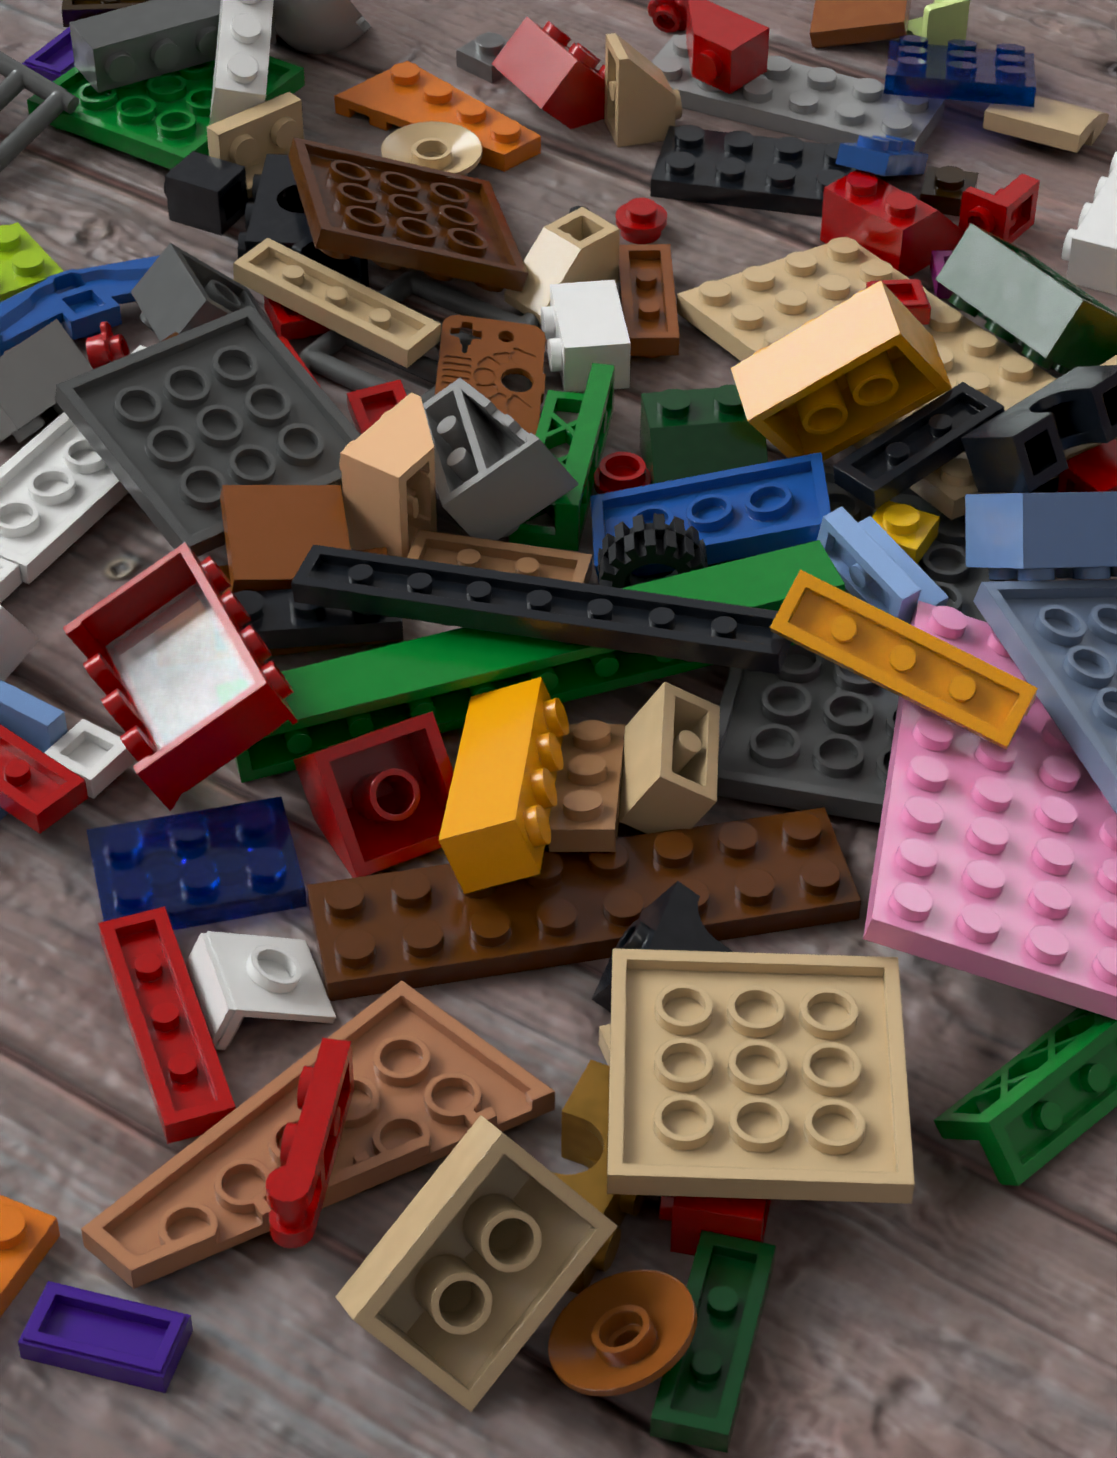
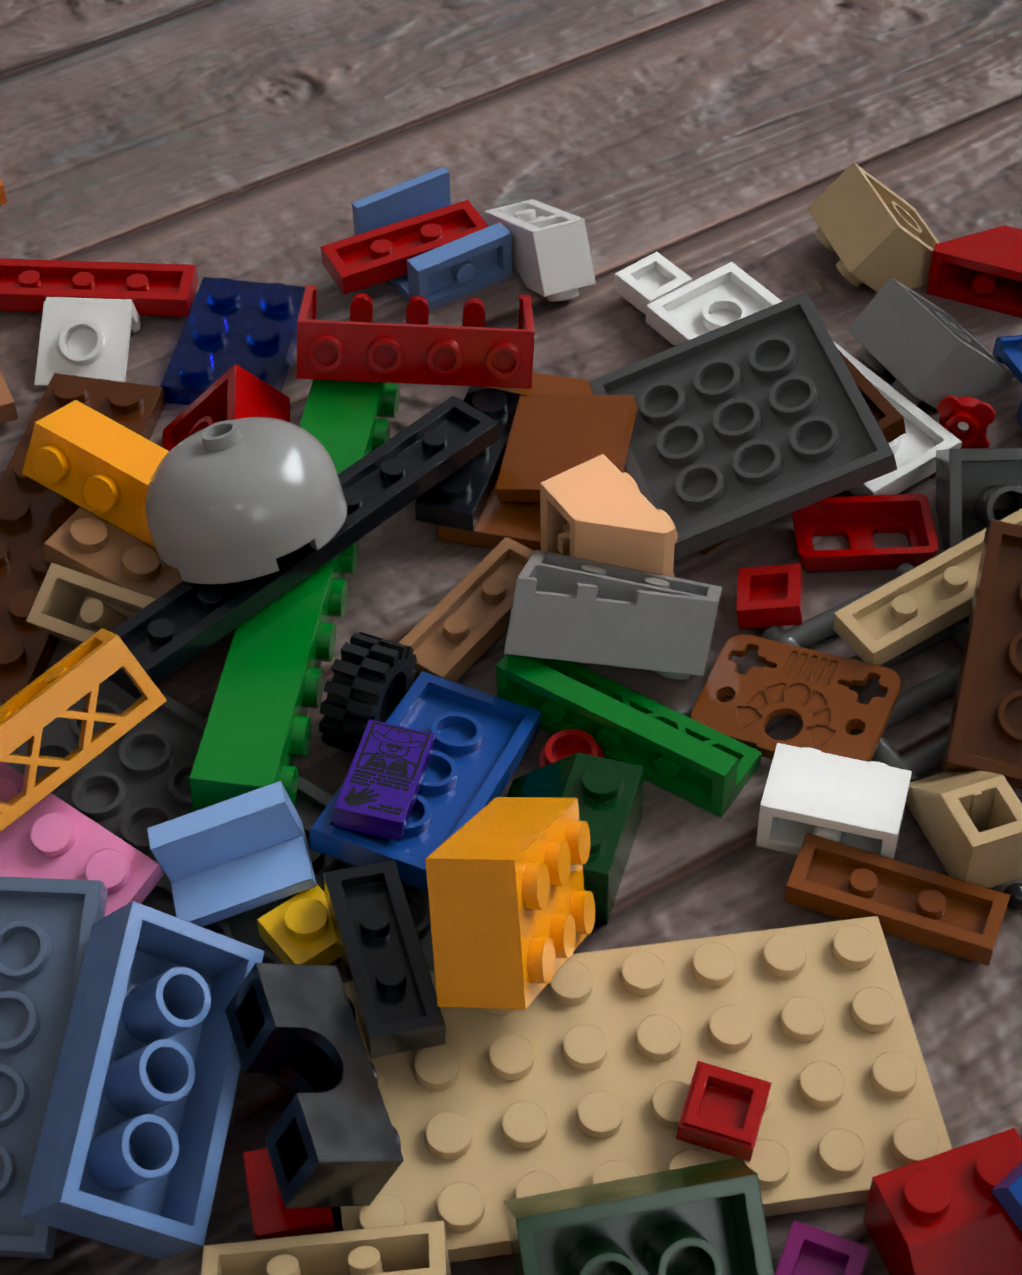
camera: 115 degrees right, 5 degrees up
(92, 755) = (389, 297): white plate -> none
(560, 609) = (242, 499): none -> light grey cylinder
(755, 503) = (383, 780): none -> dark purple tile

